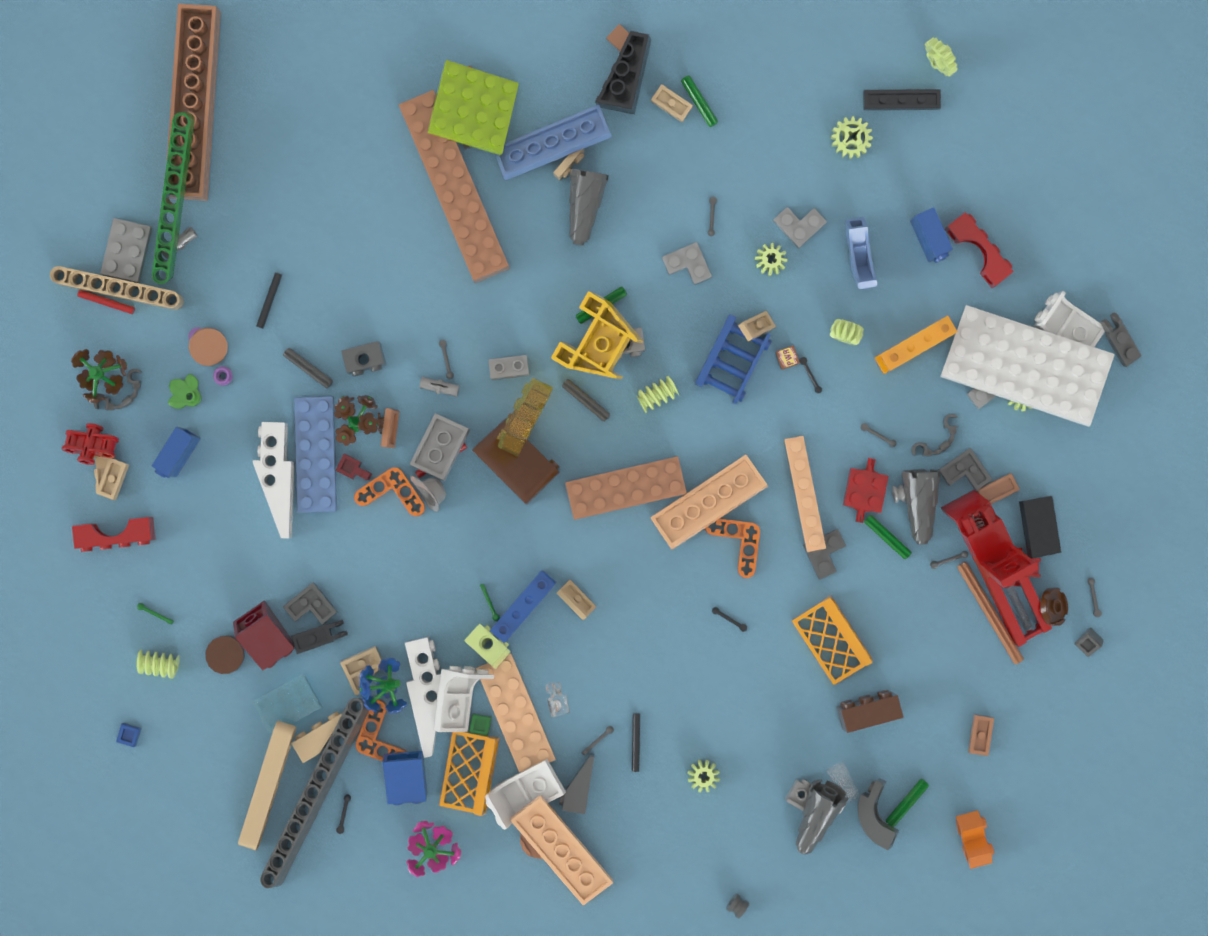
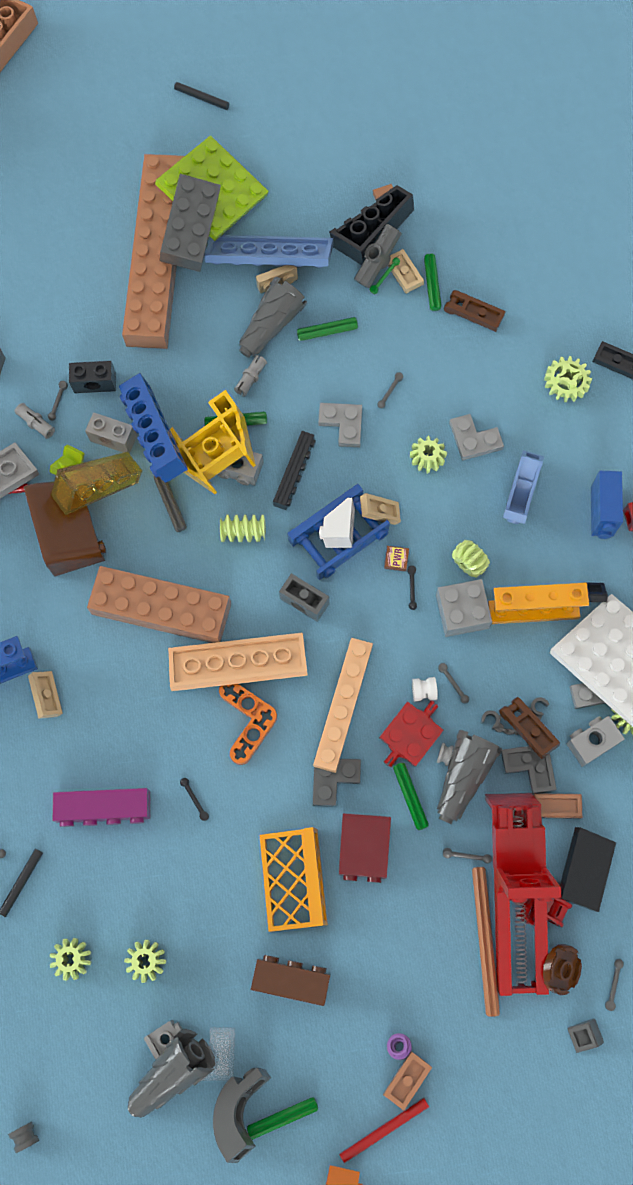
camera: 30 degrees right, 15 degrees down
(408, 15) = (201, 95): none -> black bar
(466, 326) = (92, 377): none -> black brick
(480, 157) = (190, 222): none -> dark grey brick
(488, 409) = (70, 457): none -> lime bracket
(582, 375) = (152, 428): none -> blue brick
(593, 261) = (250, 375): none -> light grey pin
(633, 187) = (327, 328): none -> green axle
(646, 92) = (377, 256): none -> dark grey piece
(653, 131) = (374, 288): none -> green hinge
(666, 659) = (101, 806): none -> magenta brick
(670, 324) = (293, 471): none -> black piece
(734, 358) = (339, 526): none -> white slope
(734, 427) = (304, 597): none -> dark grey brick
(747, 111) = (475, 310): none -> reddish brown plate
(752, 755) = (137, 962): none -> yellowish green gear
(859, 374) = (463, 608): none -> light grey brick
(859, 452) = (424, 689): none -> white wheel
(874, 592) = (364, 847): none -> dark red slope
(952, 309) = (596, 592): none -> black tile
(952, 443) = (530, 728): none -> reddish brown plate
(960, 720) = (393, 1041): none -> medium lavender plate
(980, 775) = (384, 1130): none -> red bar
(1013, 421) = (608, 738): none -> light grey brick

